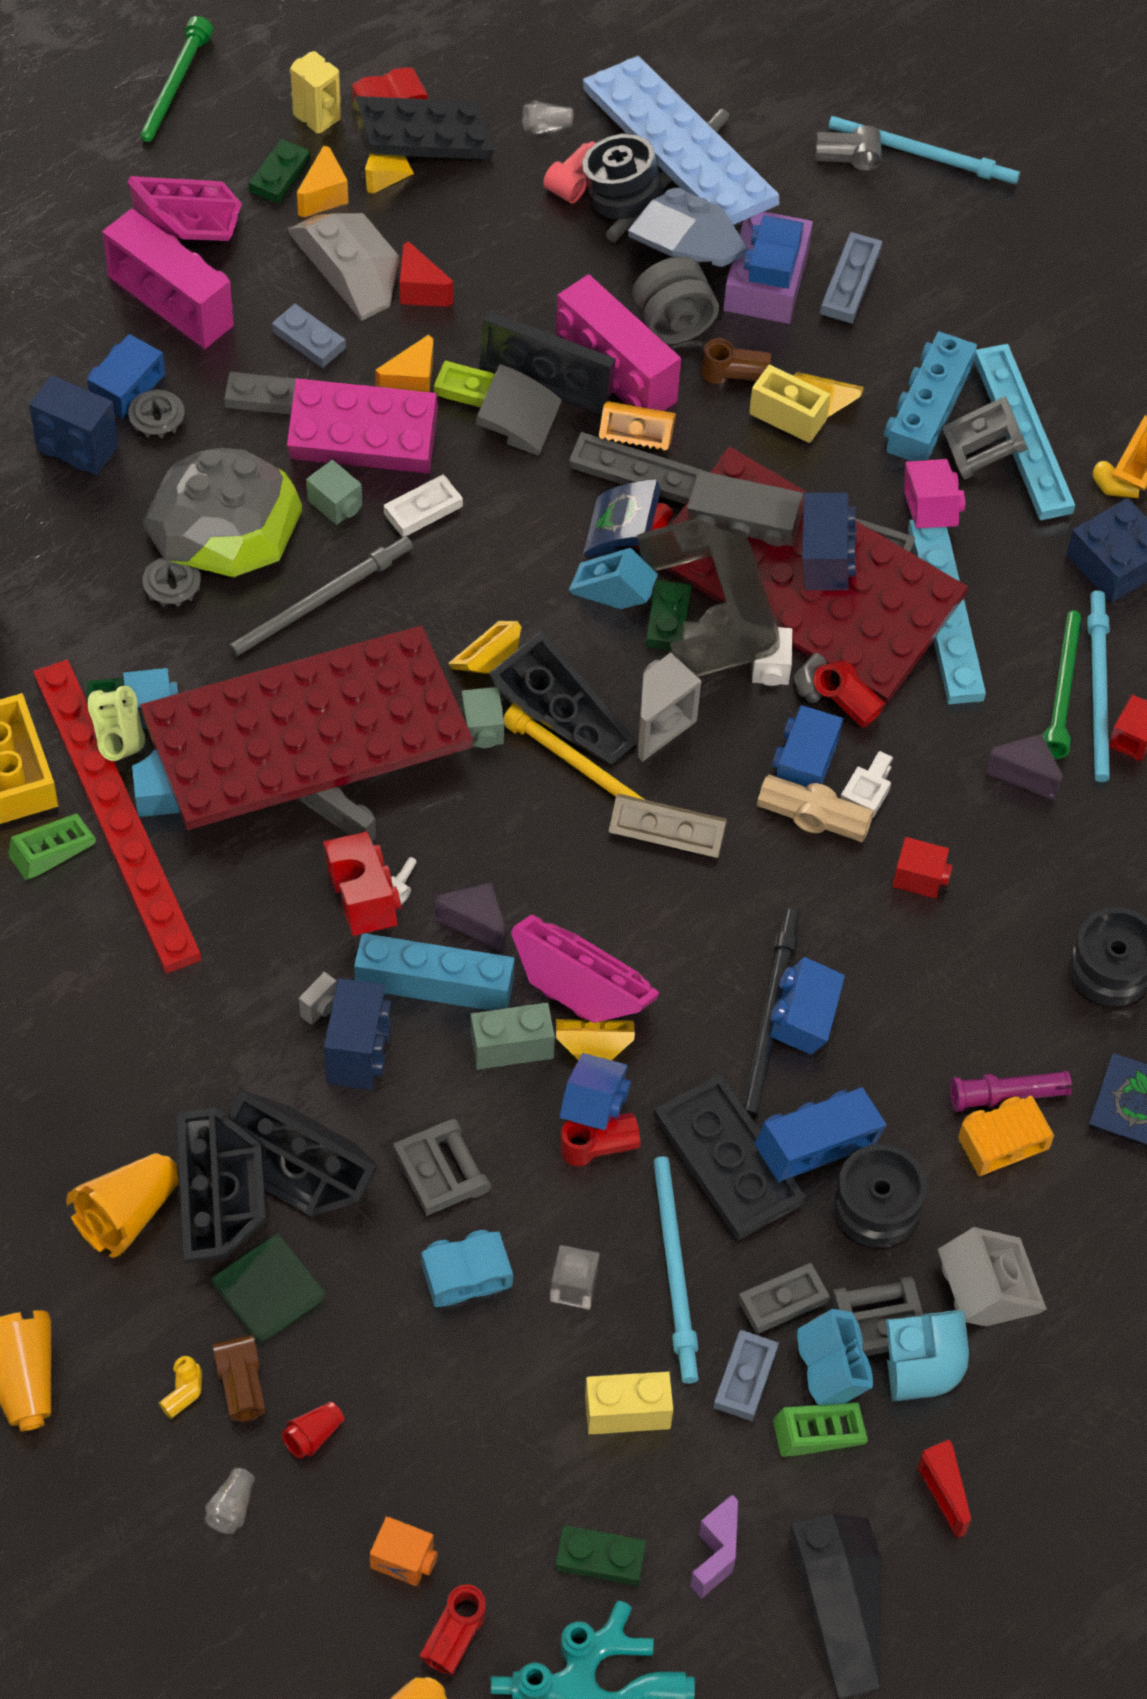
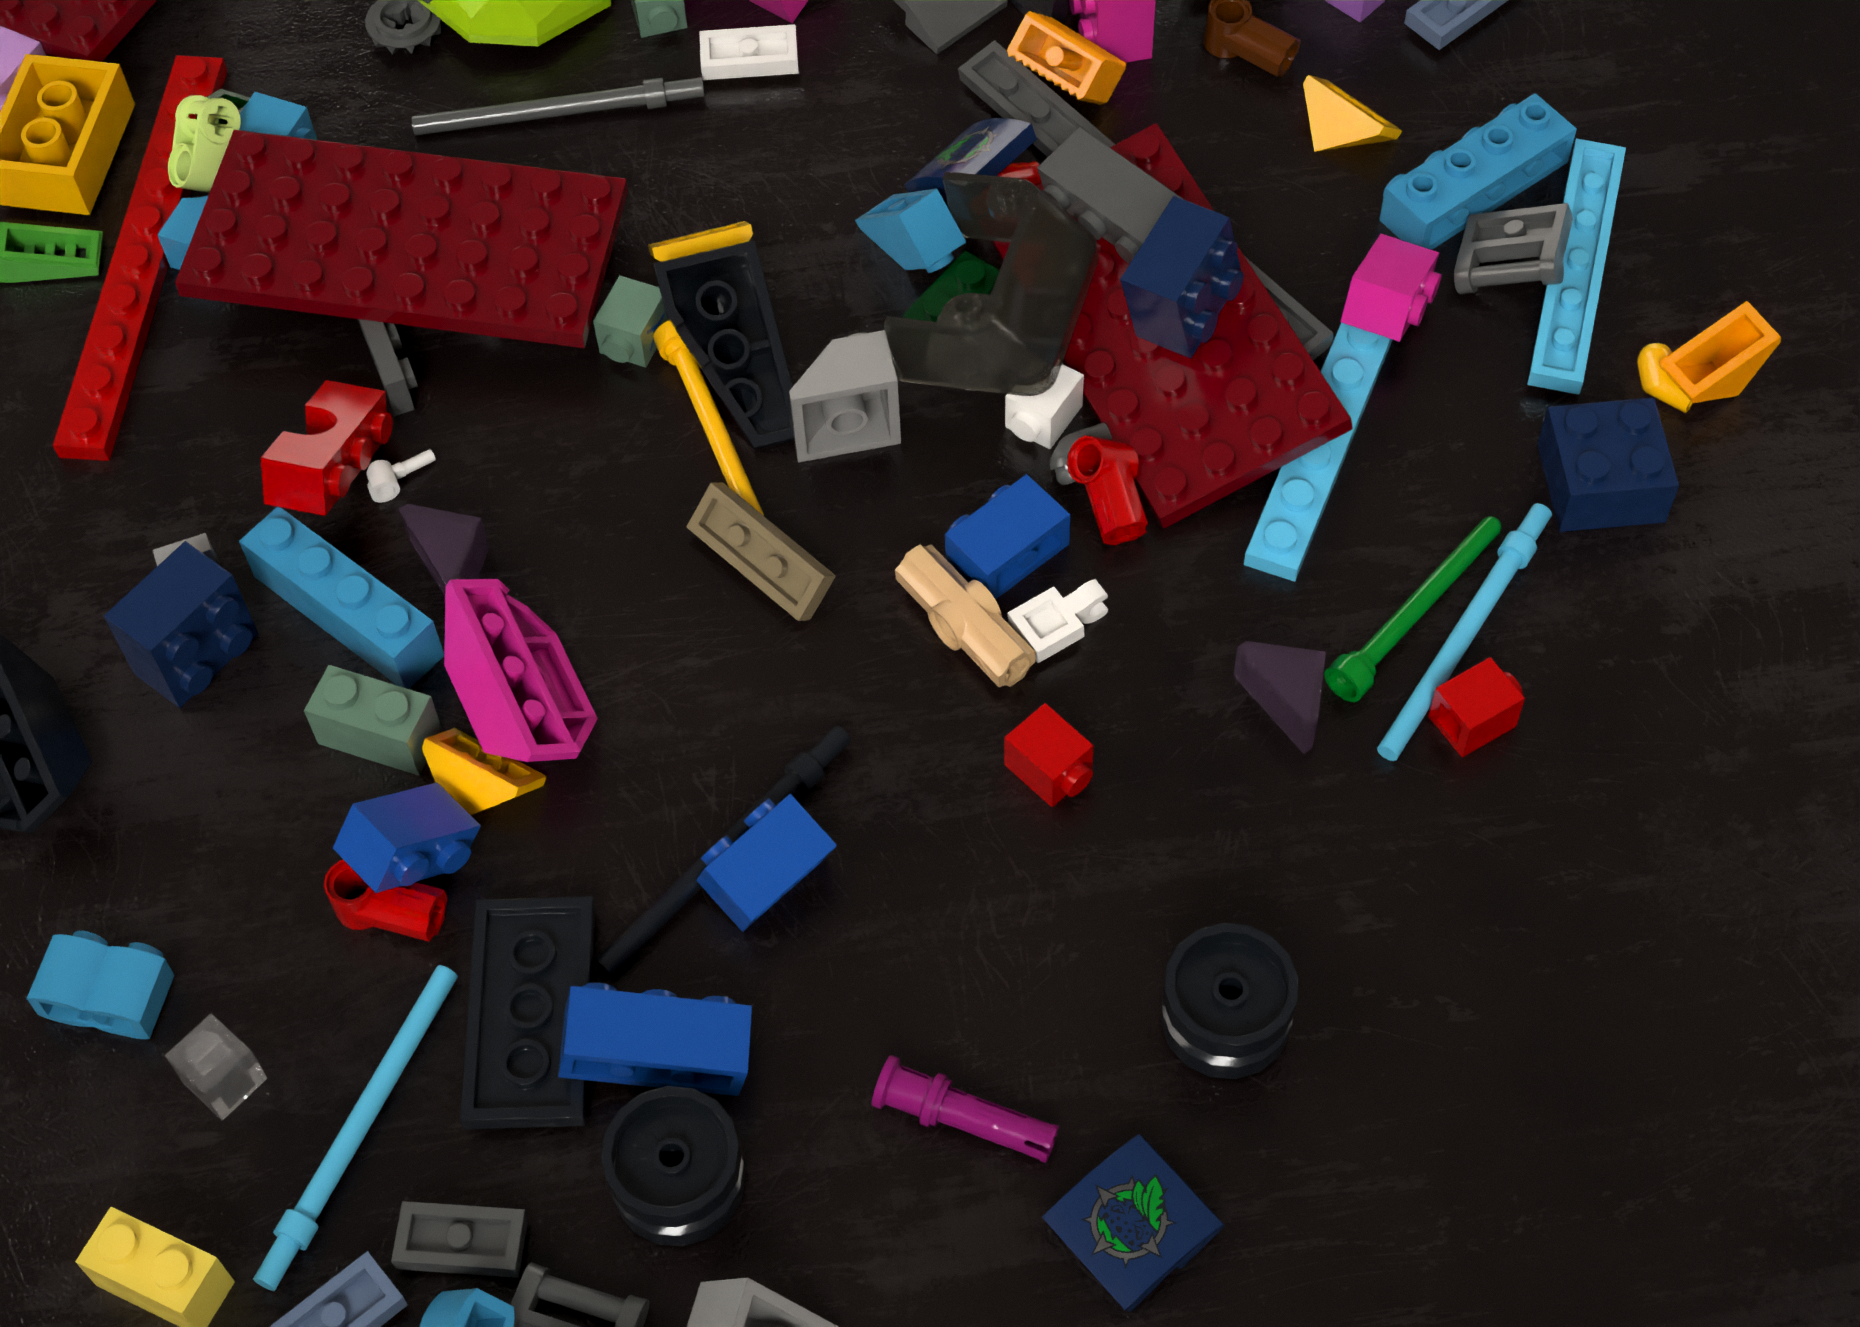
camera: 35 degrees right, 0 degrees up
(430, 1173) = (156, 837): dark grey plate -> none
(789, 403) = (1279, 107): light yellow brick -> none
(1005, 1134) = (910, 1171): light orange brick -> none

